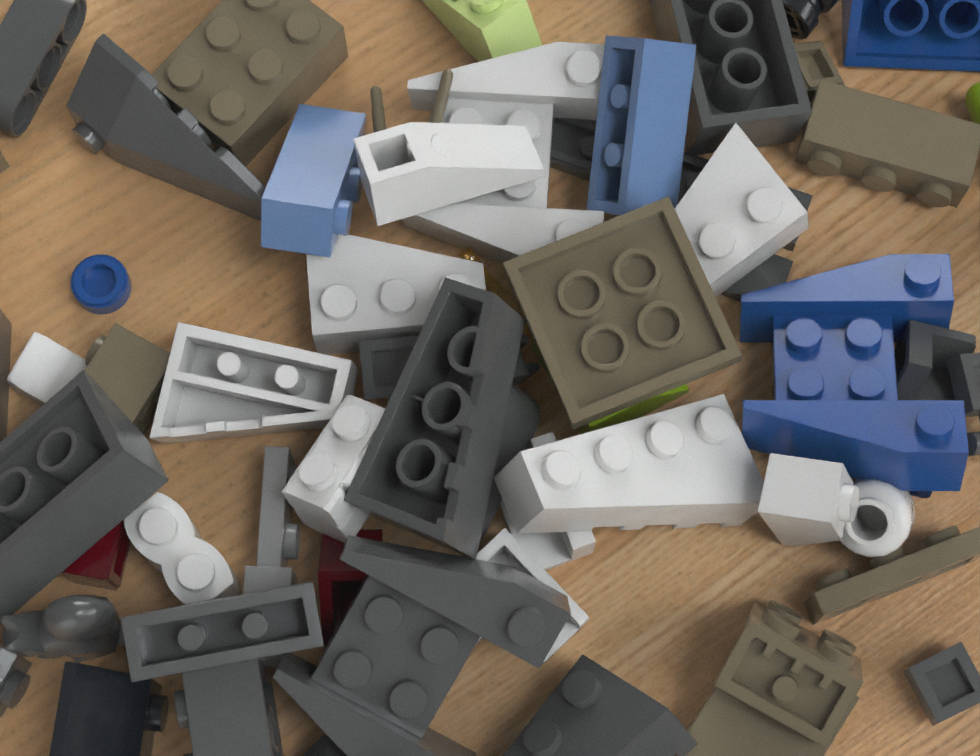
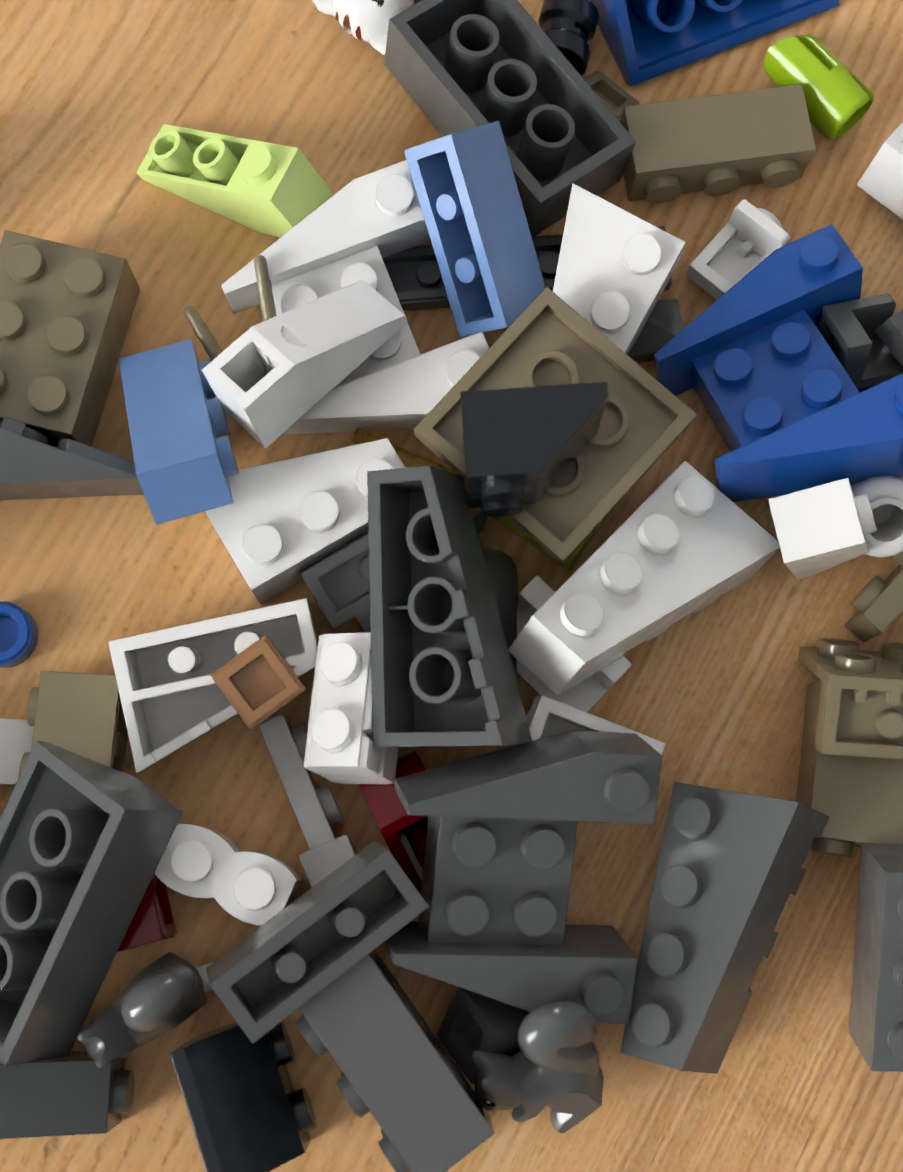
camera: 30 degrees left, 5 degrees up
(280, 409) = (258, 681): none -> medium nougat tile
(578, 308) = (524, 440): none -> black slope
(862, 239) = (737, 249): none -> white bracket

